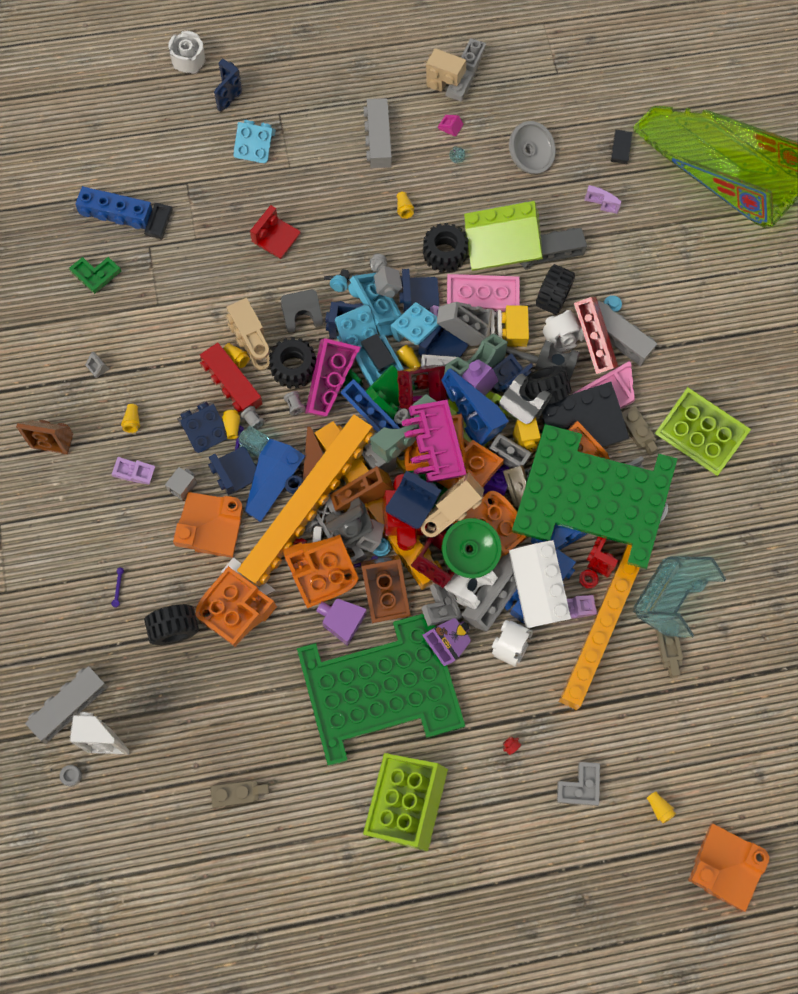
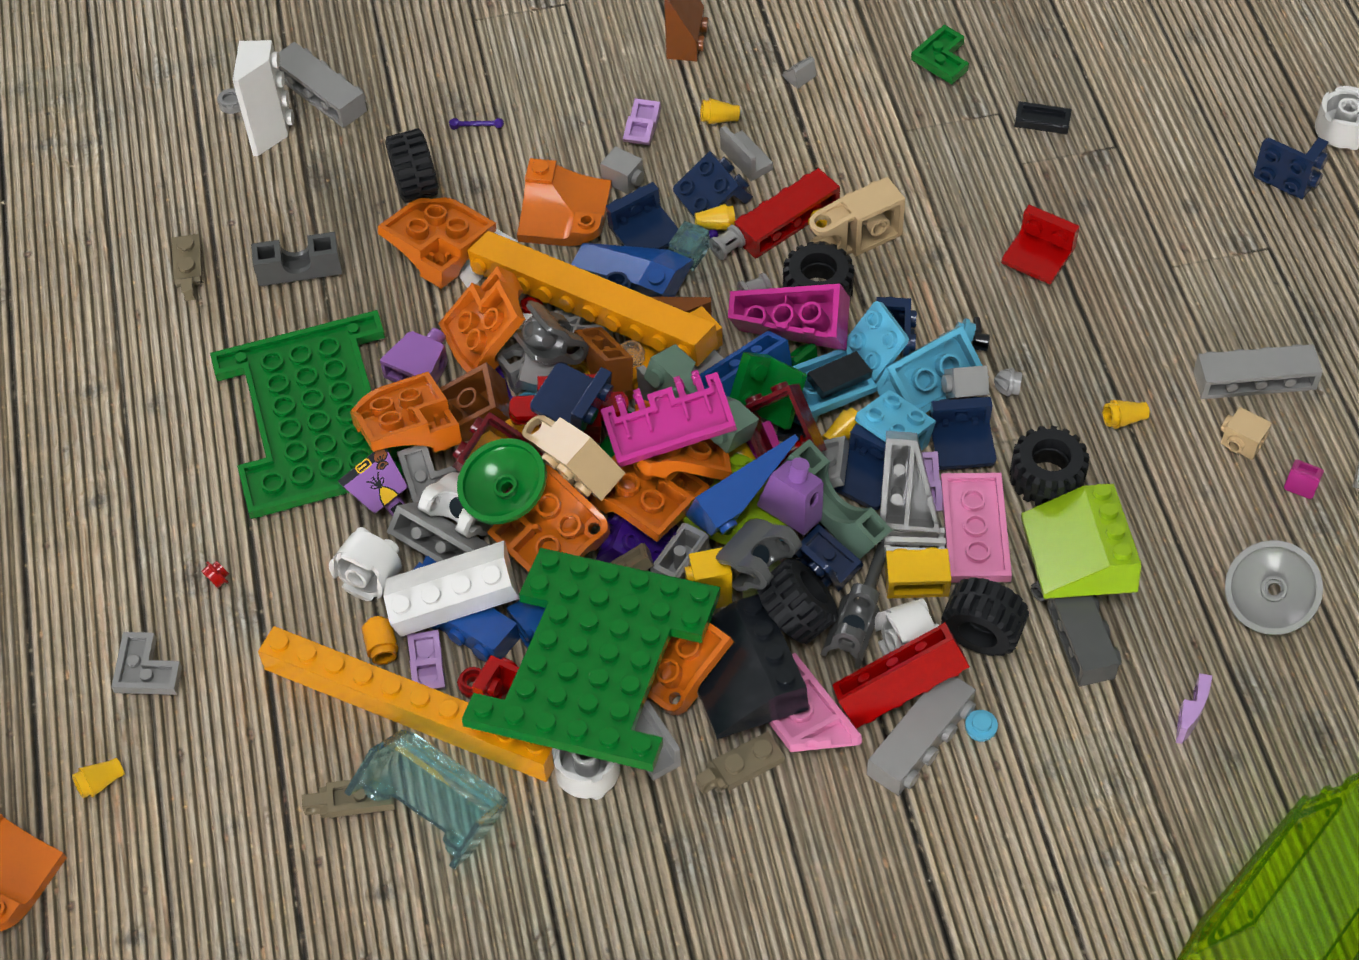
camera: 95 degrees right, 15 degrees down
(113, 207) = (1051, 61): blue brick -> none
(172, 404) = (744, 153): none -> light grey panel
(248, 707) = (278, 266): none -> dark grey arch
(253, 141) = (1206, 209): medium azure bracket -> none
(300, 304) = (916, 279): dark grey piece -> none
(355, 471) = (635, 350): none -> clear plate
(403, 619) = (407, 414): none -> orange slope
(406, 801) = (148, 448): lime slope -> none
(423, 146) = (1245, 432): none -> tan brick
(457, 154) = (1241, 485): clear light blue plate -> none
(561, 635) = (380, 640): none -> light orange brick
(621, 146) = (1320, 747): black tile -> none
(702, 431) = (744, 865): lime slope -> none

